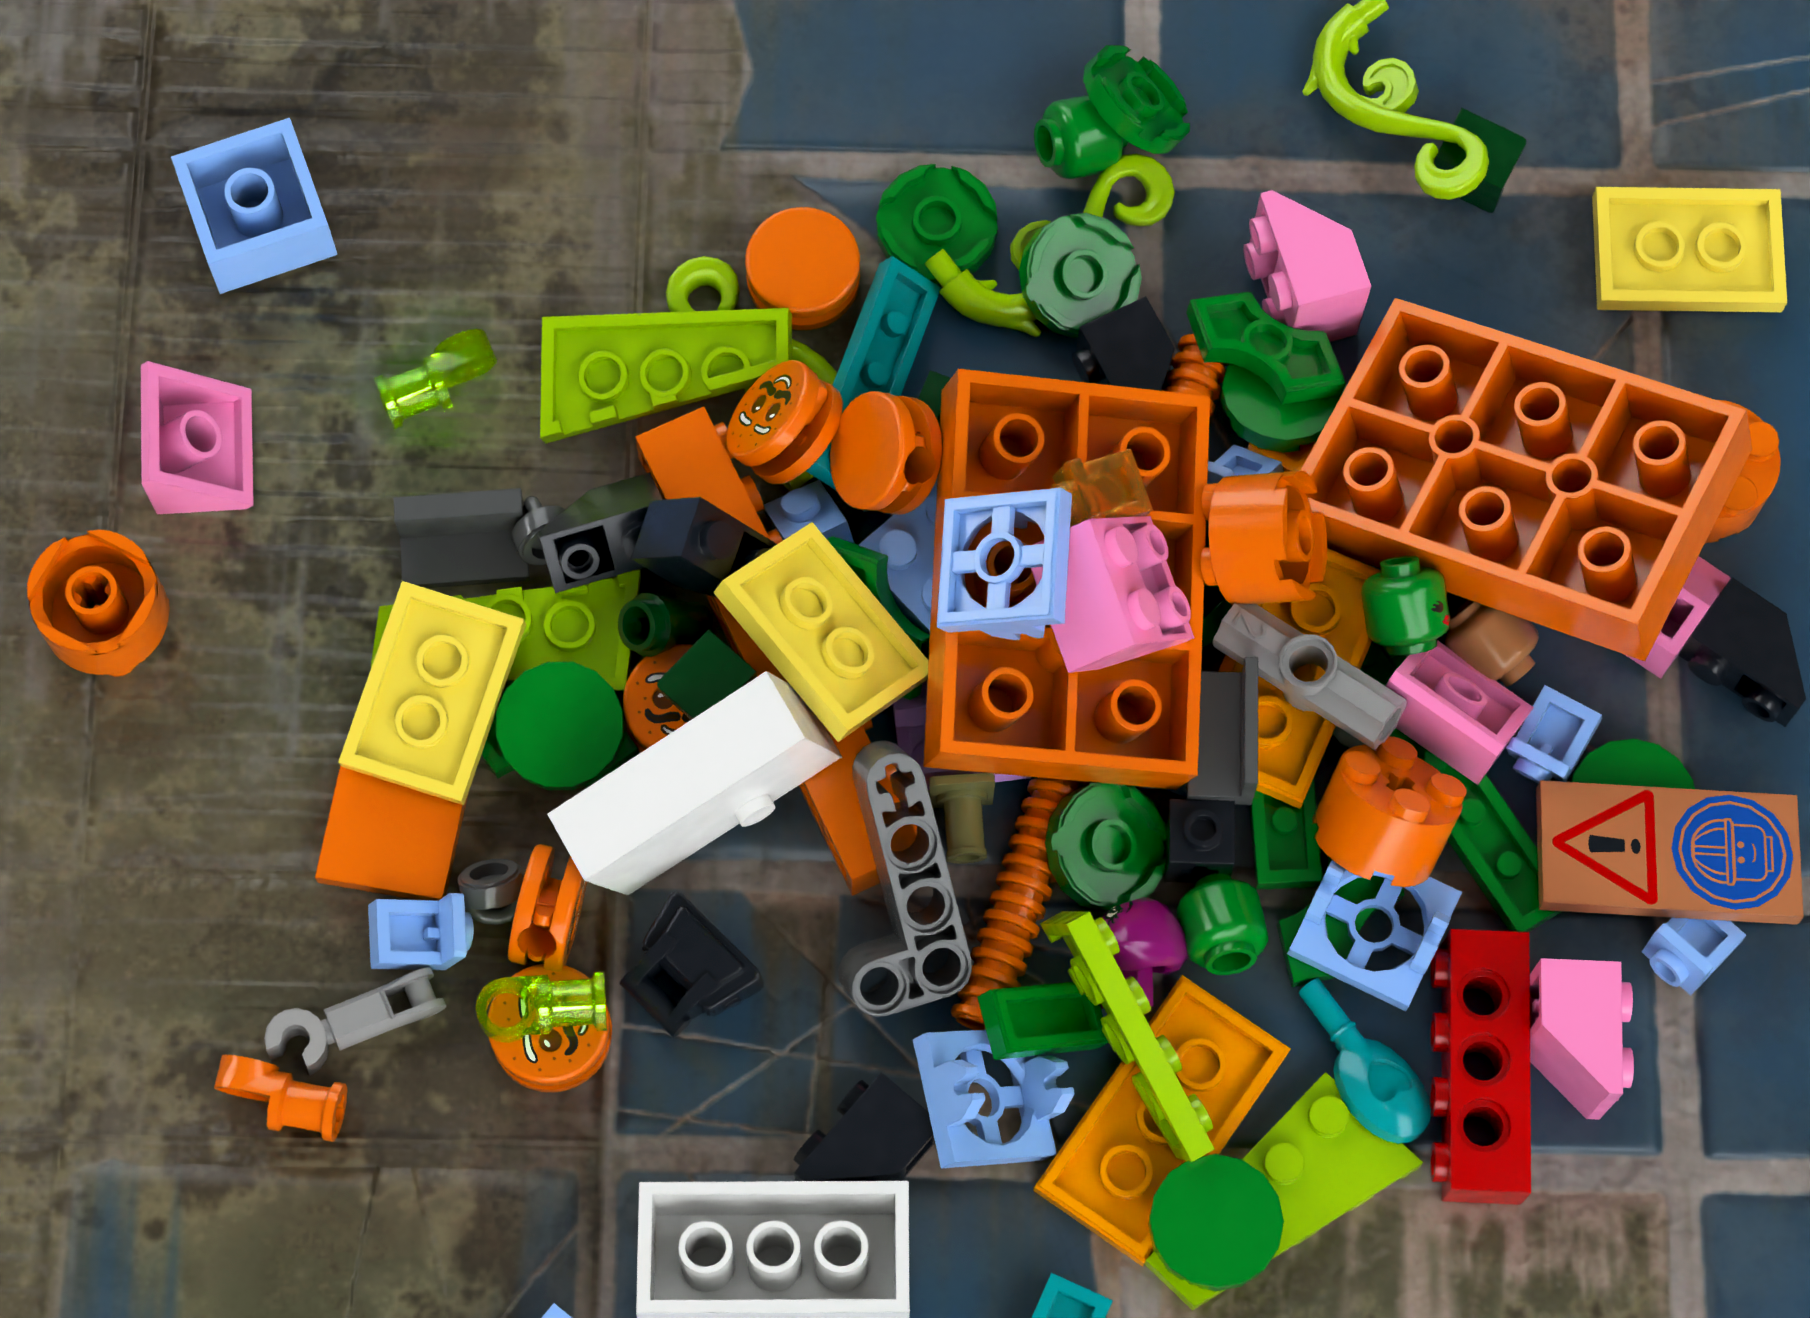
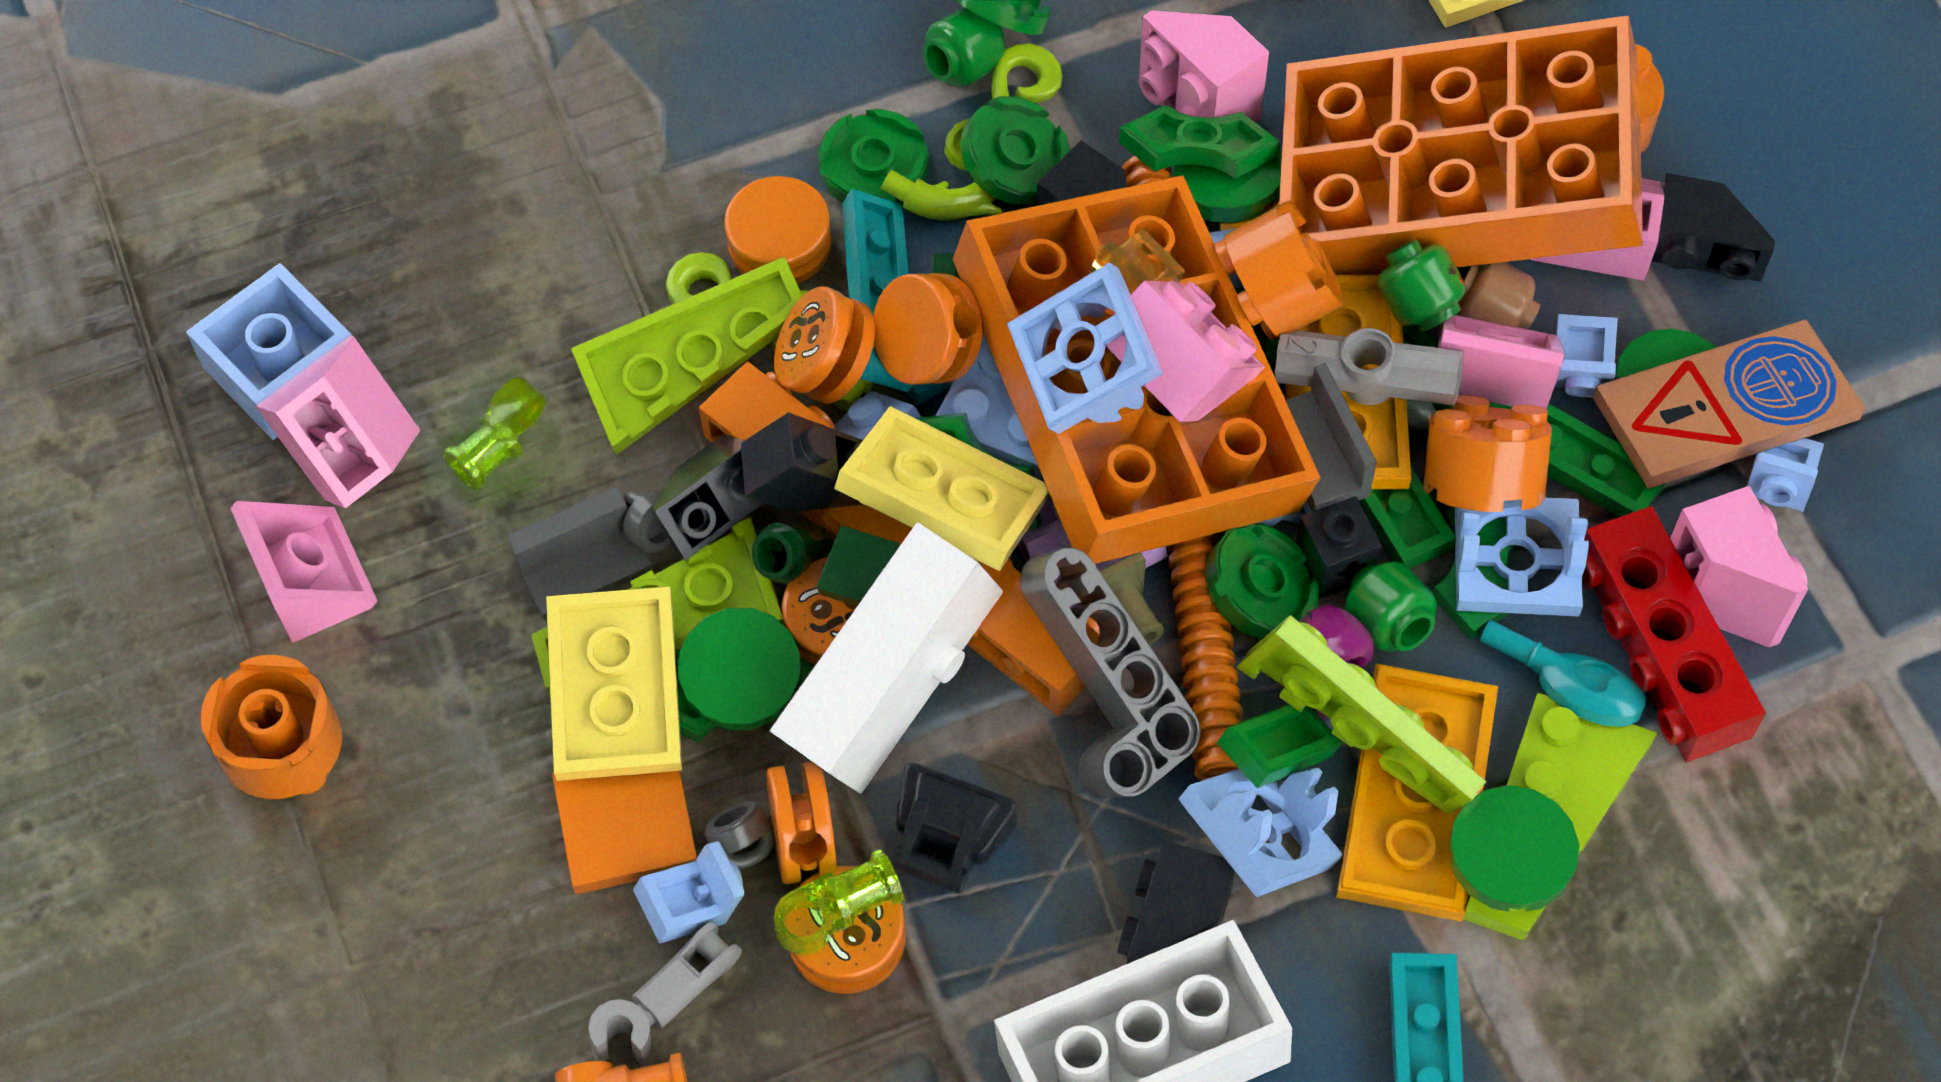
camera: 20 degrees left, 10 degrees down
(287, 312) = (341, 423): none -> bright pink slope

